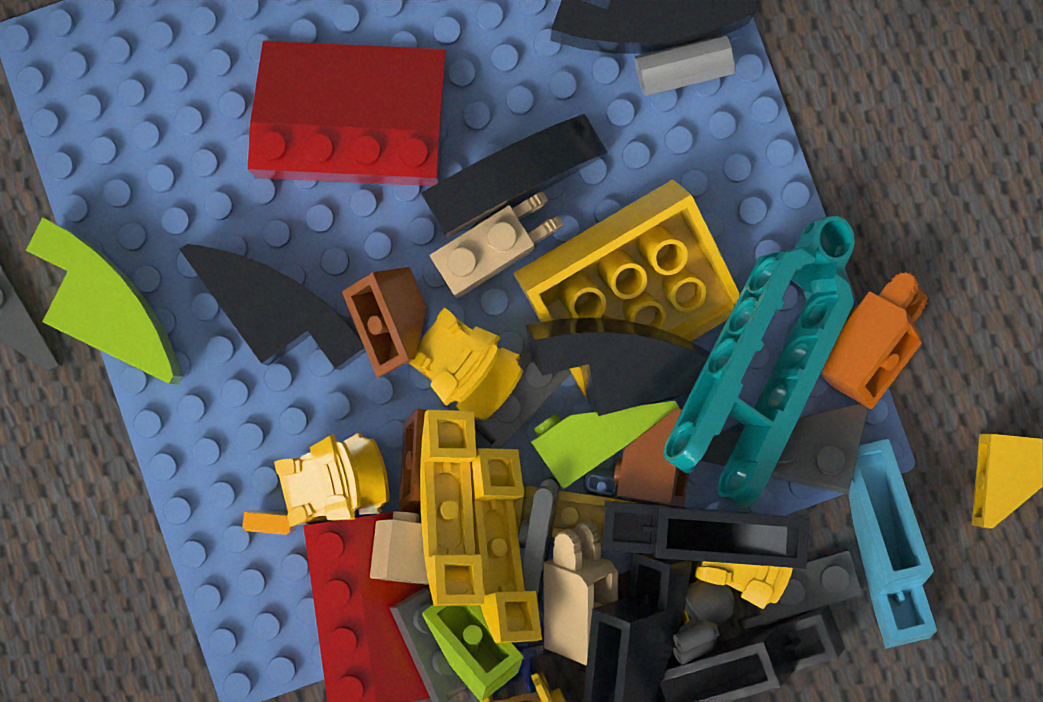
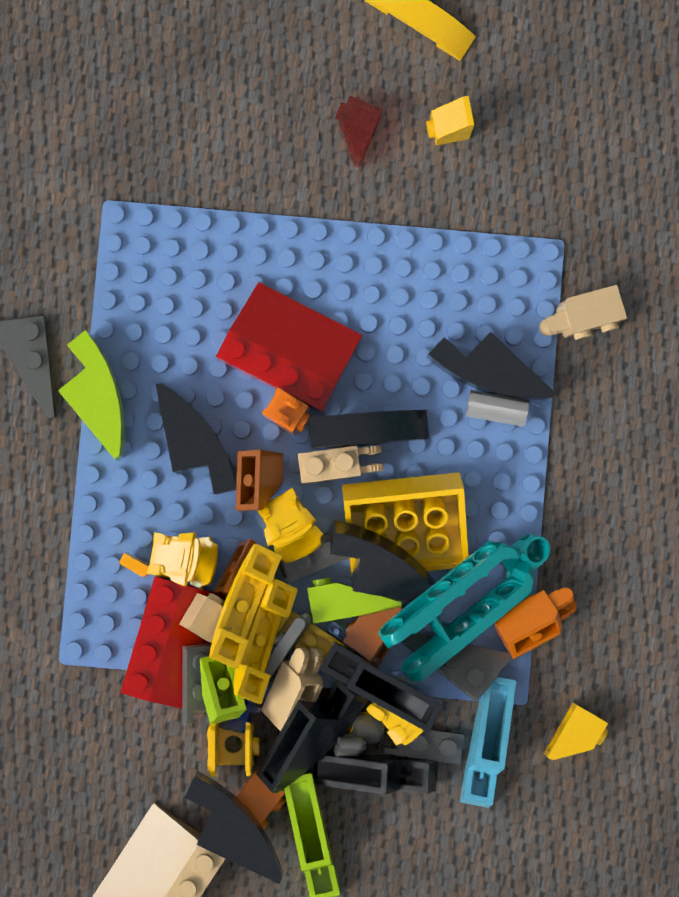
camera: 25 degrees right, 0 degrees up
(387, 202) = (287, 412): none -> orange hinge

